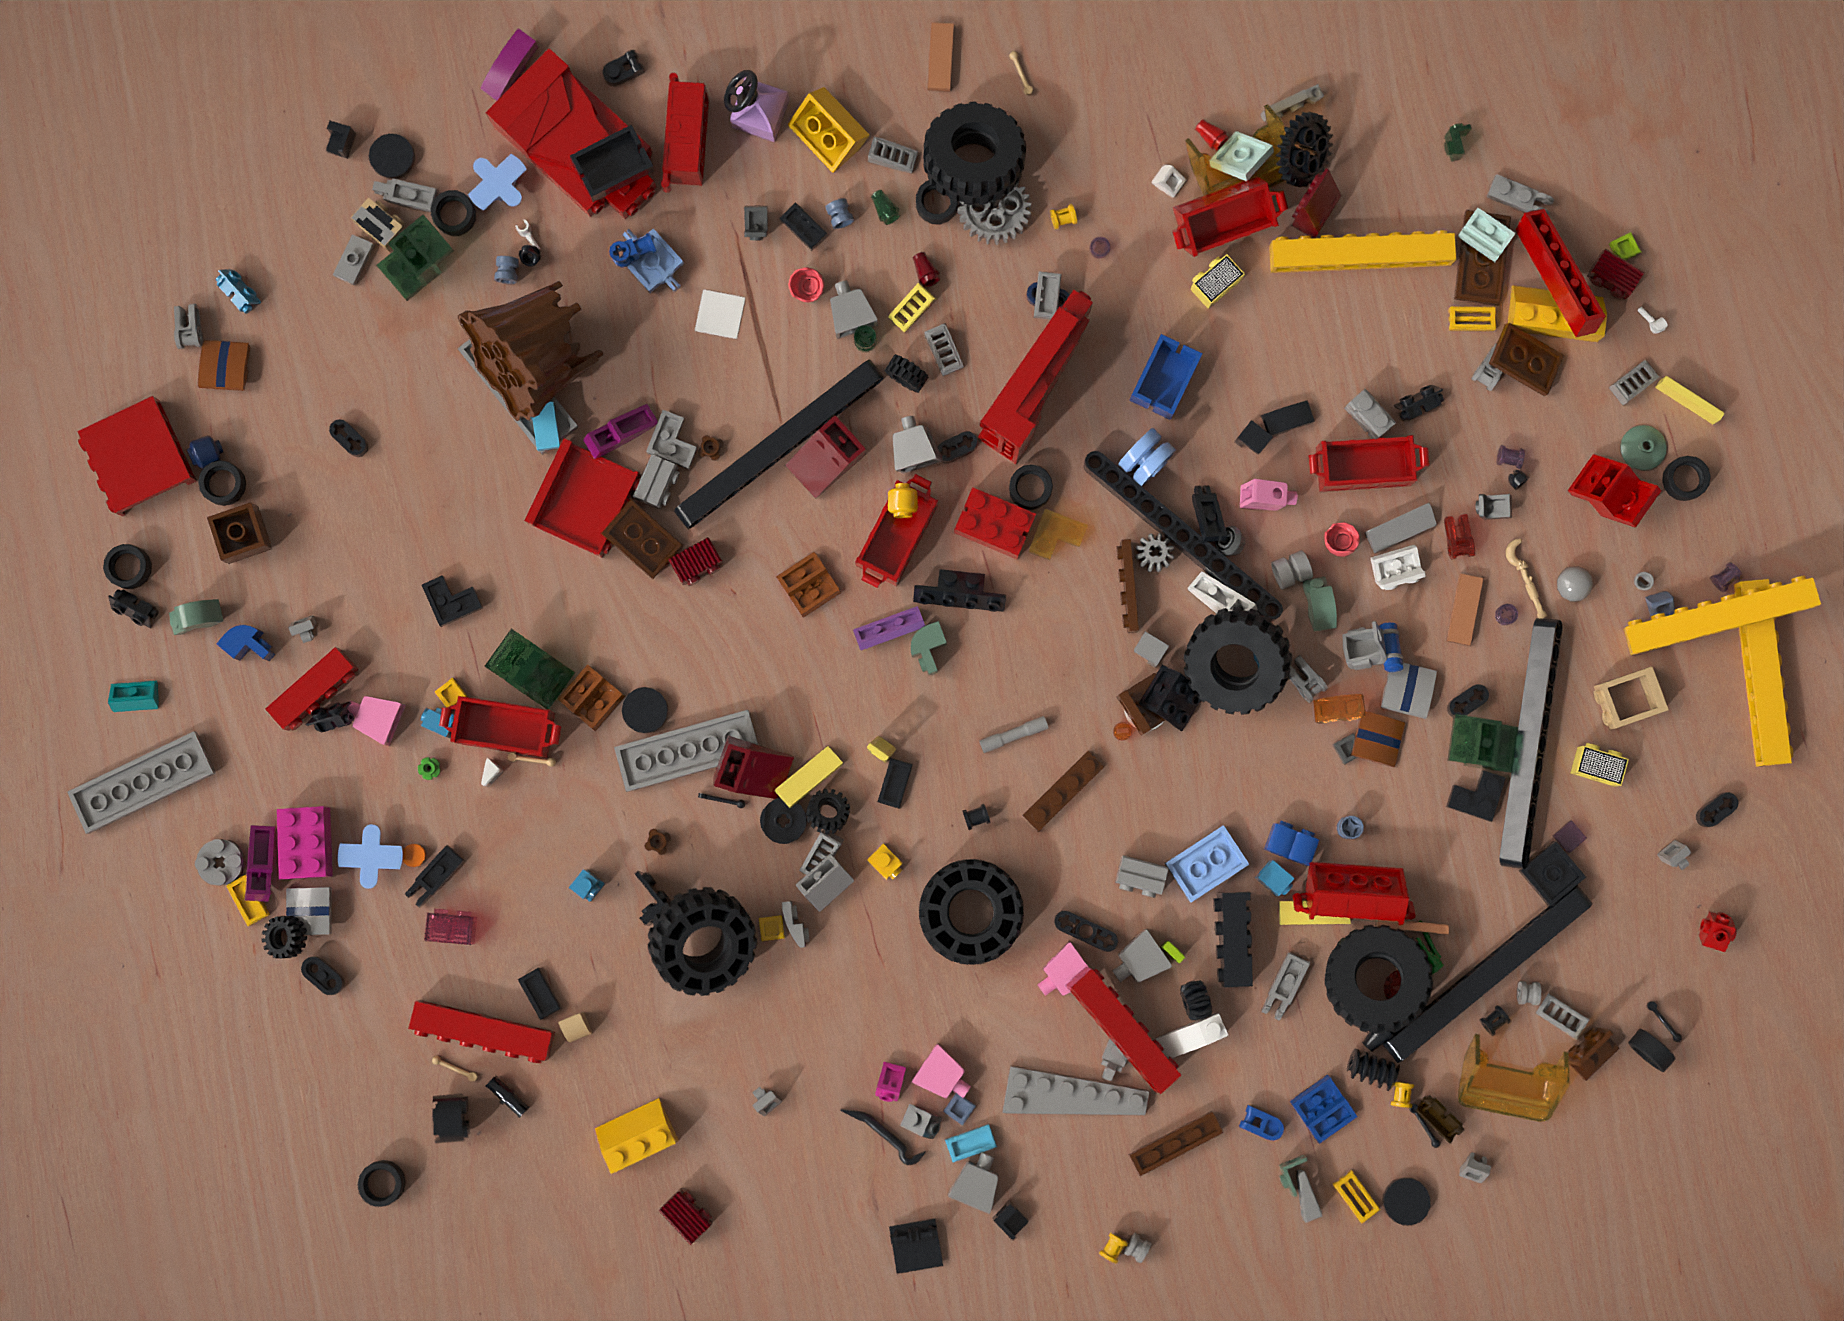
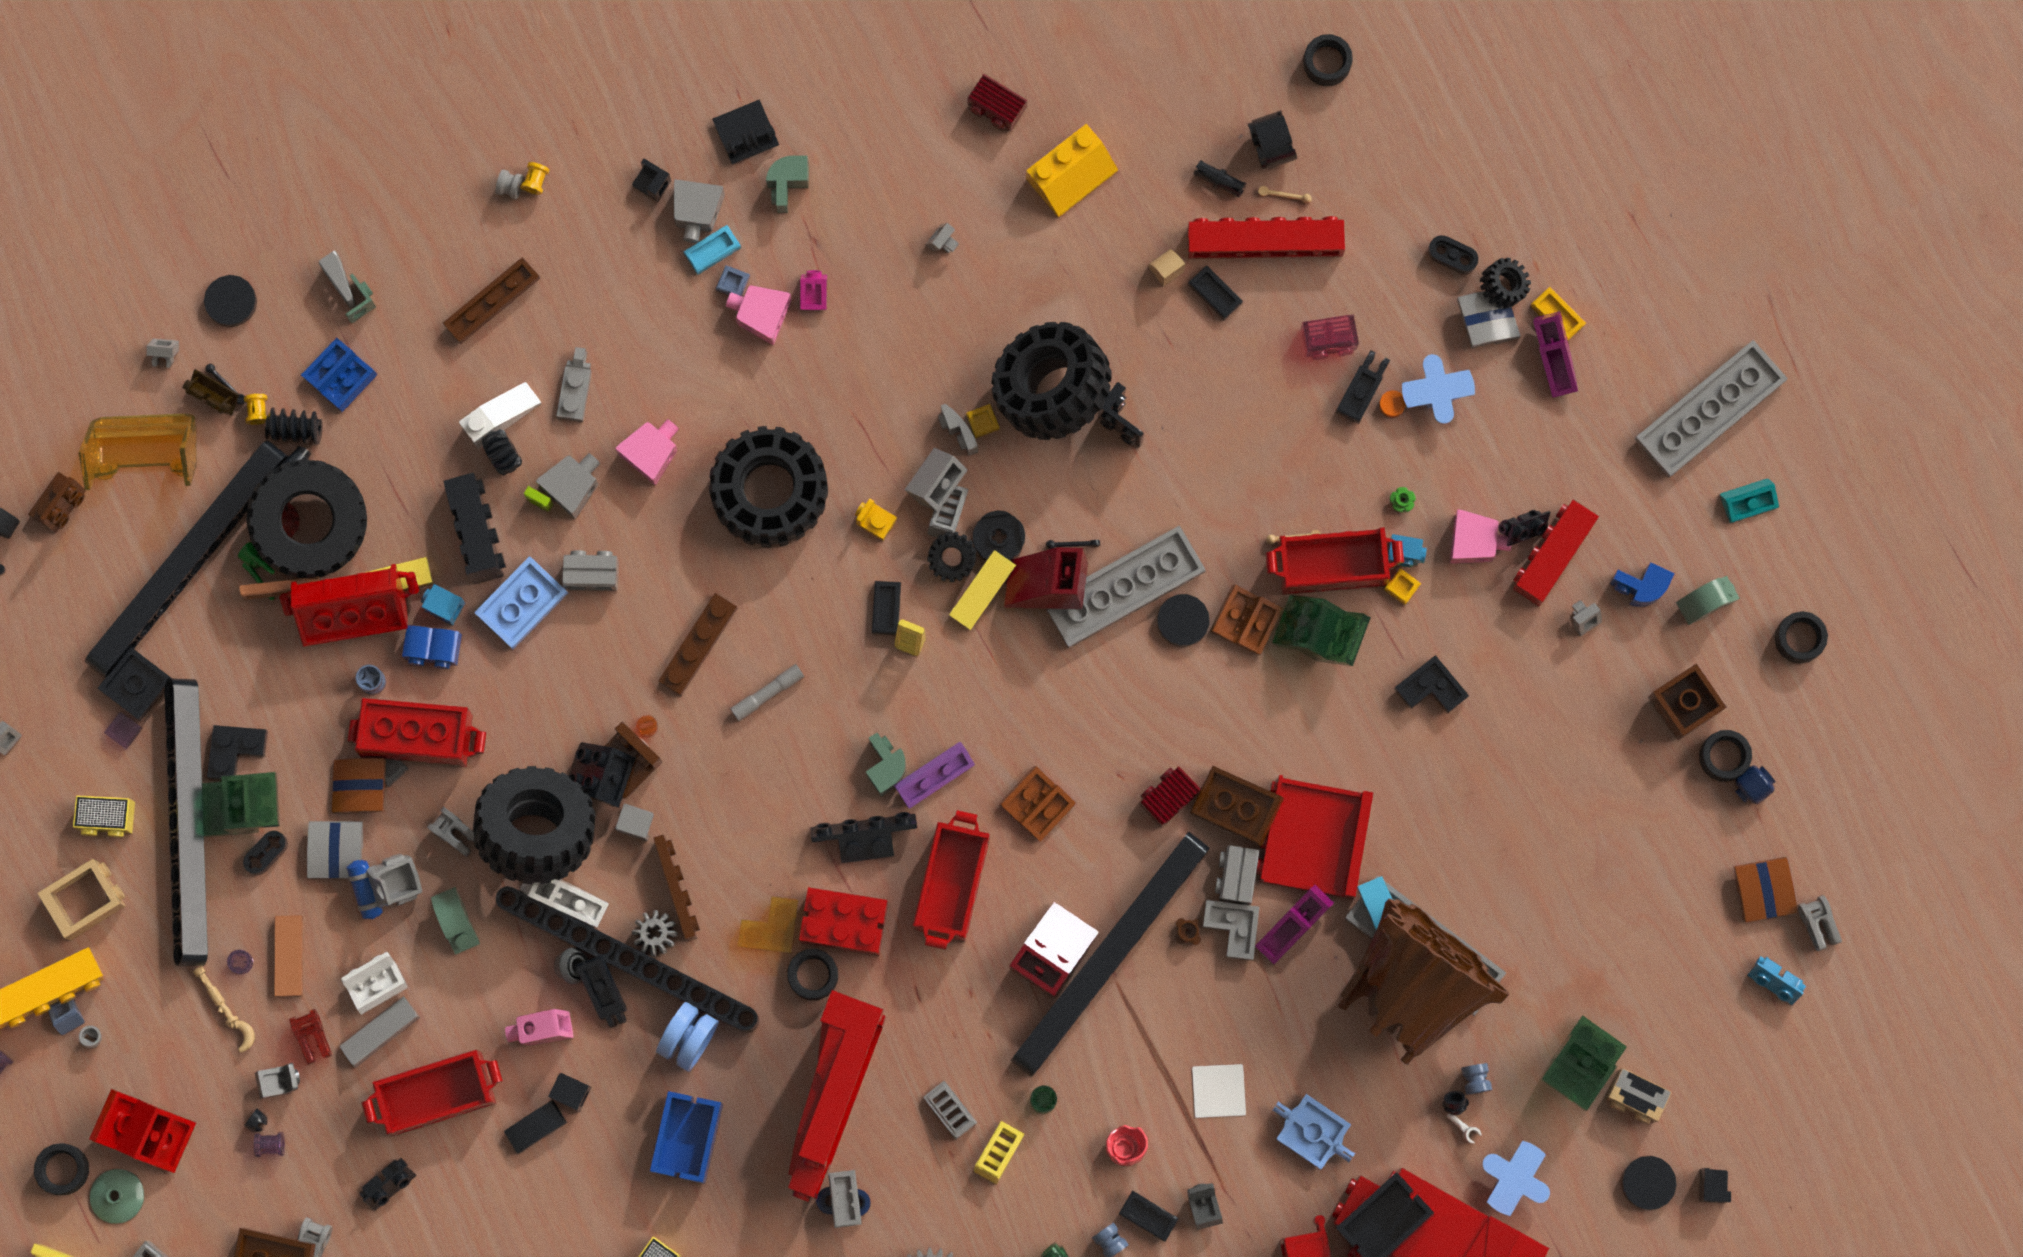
camera: 165 degrees right, 5 degrees down
(124, 602) = (1791, 595): black hinge -> none
(135, 455) = (1830, 761): red panel -> none
(233, 862) = (1600, 331): light grey plate -> none
(304, 842) = (1513, 386): dark pink brick -> none
(345, 441) = (1603, 836): black beam -> none
(353, 260) = (1656, 1049): light grey plate -> none
(406, 194) = (1616, 1140): light grey hinge -> none
(441, 200) = (1574, 1119): black tyre -> none
(491, 772) = (1333, 511): white slope -> none
(586, 885) = (1195, 416): dark azure brick -> none
(631, 250) = (1335, 1134): blue connector -> none
(655, 835) = (1126, 476): reddish brown plate -> none
(850, 310) = (1068, 1128): light grey torso -> none
(886, 1134) = (805, 236): black piece -> none
(886, 1196) = (785, 174): none -> sand green brick
(902, 501) = (952, 912): yellow head -> none
(906, 373) = (985, 1067): black tyre -> none
(914, 447) = (955, 986): light grey torso -> none
(921, 1122) = (770, 257): bracket -> none
(926, 271) = (993, 1198): dark red cone -> none
(954, 442) = (912, 1005): black beam -> none
(976, 816) = (787, 591): black bush -> none
(1051, 1093) = (638, 320): light grey wing -> none
(1104, 932) = (658, 497): black beam -> none
(1123, 1029) = (574, 400): red brick -> none
(1269, 1128) = (393, 341): blue plate -> none
(1286, 983) = (406, 495): light grey hinge -> none
(1293, 569) = (494, 950): light grey wheel -> none
(1322, 769) = (415, 732): none -> red container
(1339, 708) = (409, 807): clear orange slope -> none
(1342, 539) = (444, 999): coral hair -> none
(1344, 1180) = (301, 307): yellow tile -> none
(1369, 414) = (441, 1152): light grey brick -> none
(1497, 1013) = (177, 508): black bush -> none
(1528, 993) = (138, 548): light grey wheel -> none
(1574, 583) = (168, 1016): light grey hair -> none
(1579, 1028) = (81, 517): light grey slope -> none

